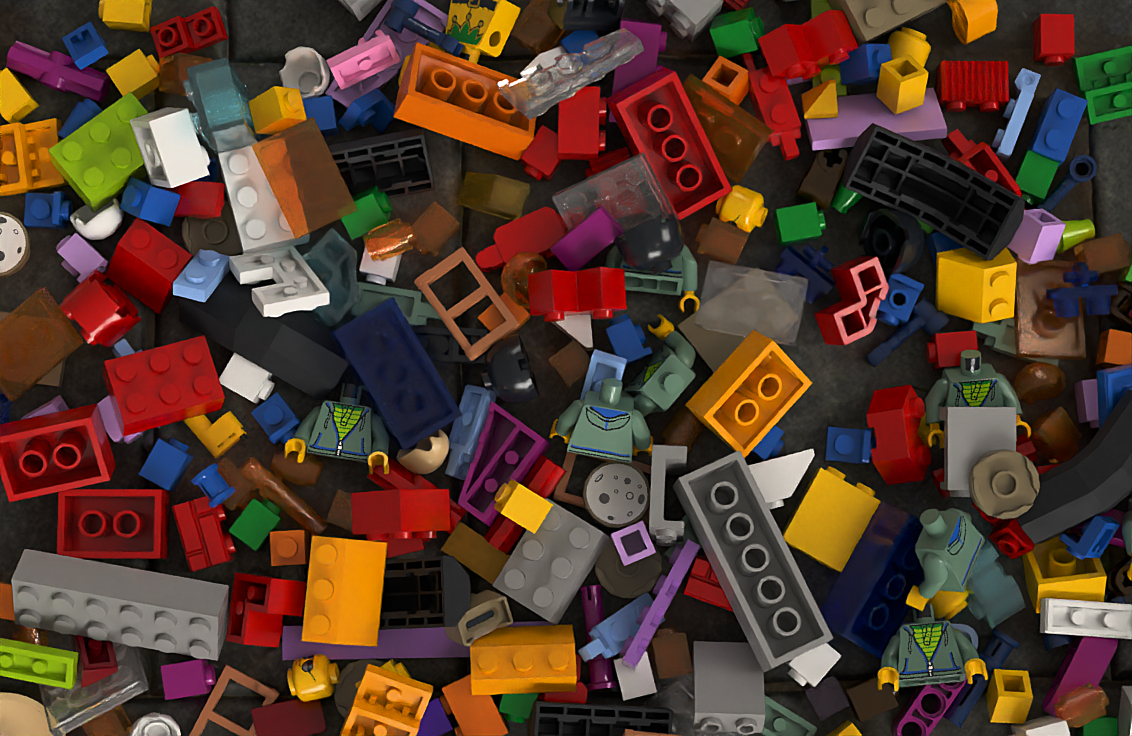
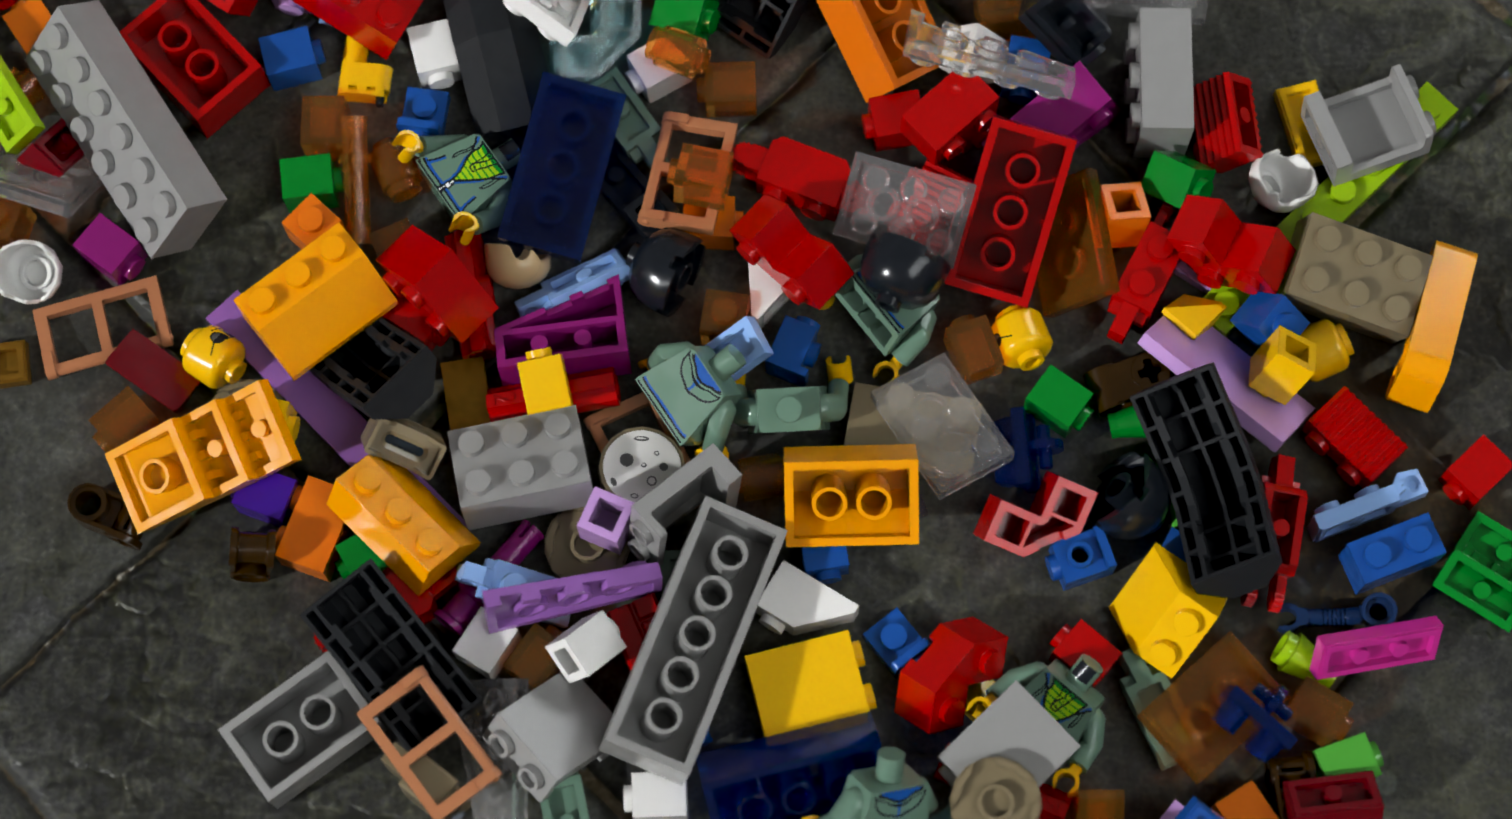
camera: 50 degrees right, 10 degrees down
(204, 534) = (256, 144): red brick -> none
(213, 485) = (307, 105): blue bush -> none
(259, 608) = (232, 251): red brick -> none
(482, 300) = (701, 176): none -> clear orange brick
(494, 195) = (815, 113): clear yellow slope -> none
(515, 275) = (753, 185): clear orange hair -> none
(587, 239) = (849, 217): magenta tile -> none
(696, 623) = (586, 646): none -> white brick
(924, 317) = (1090, 601): dark blue brick -> none
(1034, 176) = (1323, 577): green brick -> none
(1037, 236) = (1269, 625): lavender brick -> none
(1039, 382) = (1133, 763): clear orange hair -> none
(1101, 190) = (1376, 647): none -> dark pink tile

